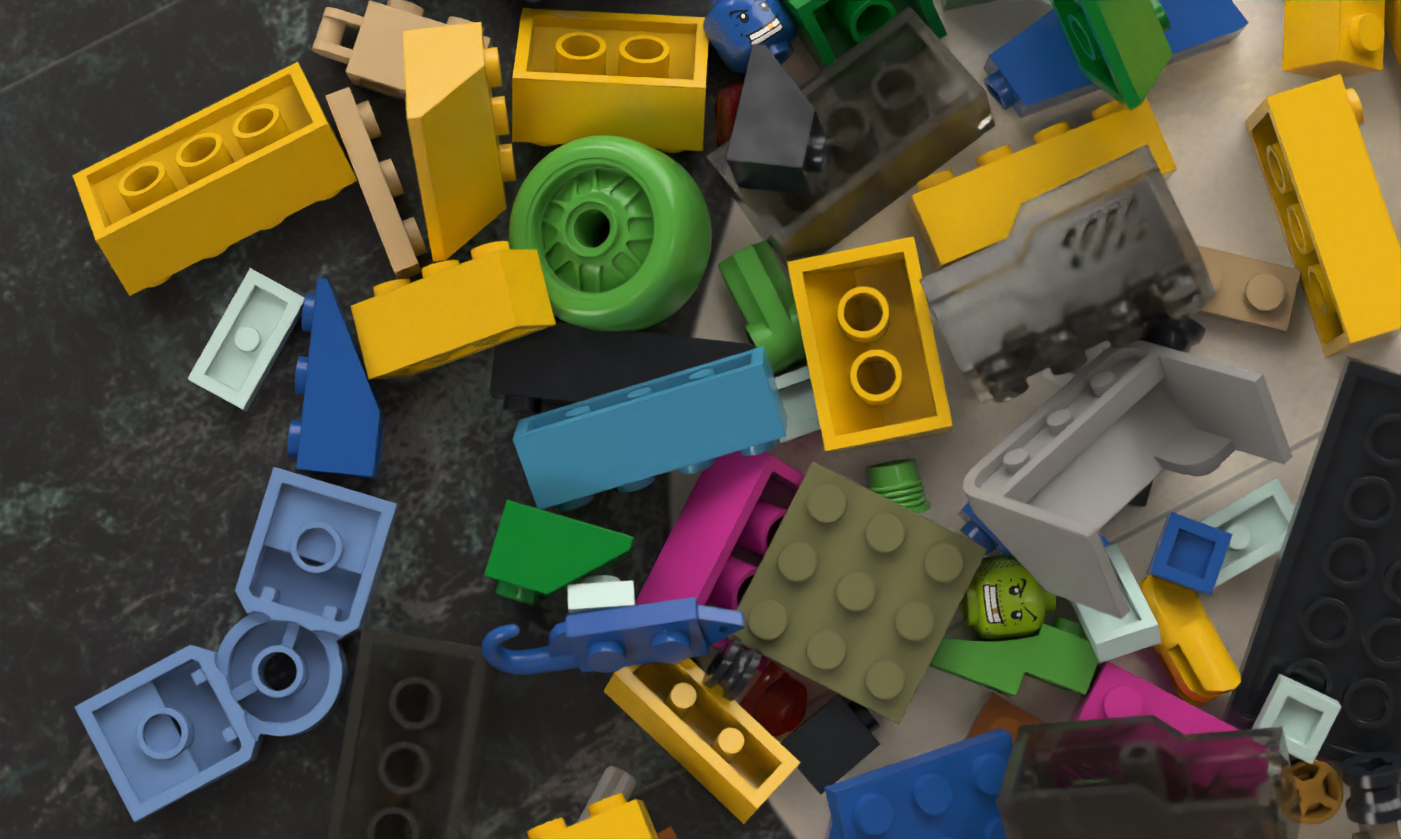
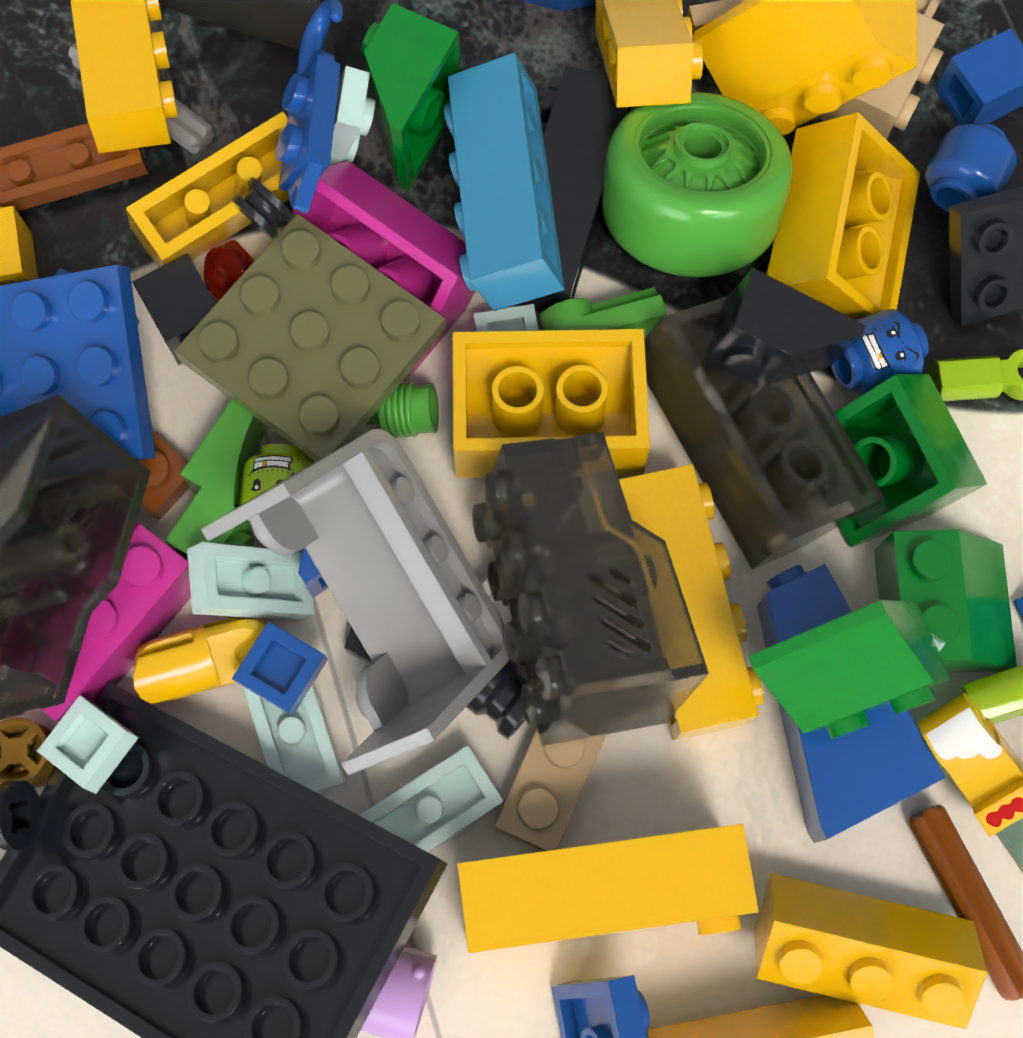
camera: 100 degrees right, 10 degrees down
(1295, 391) = (438, 802): none -> light aqua plate

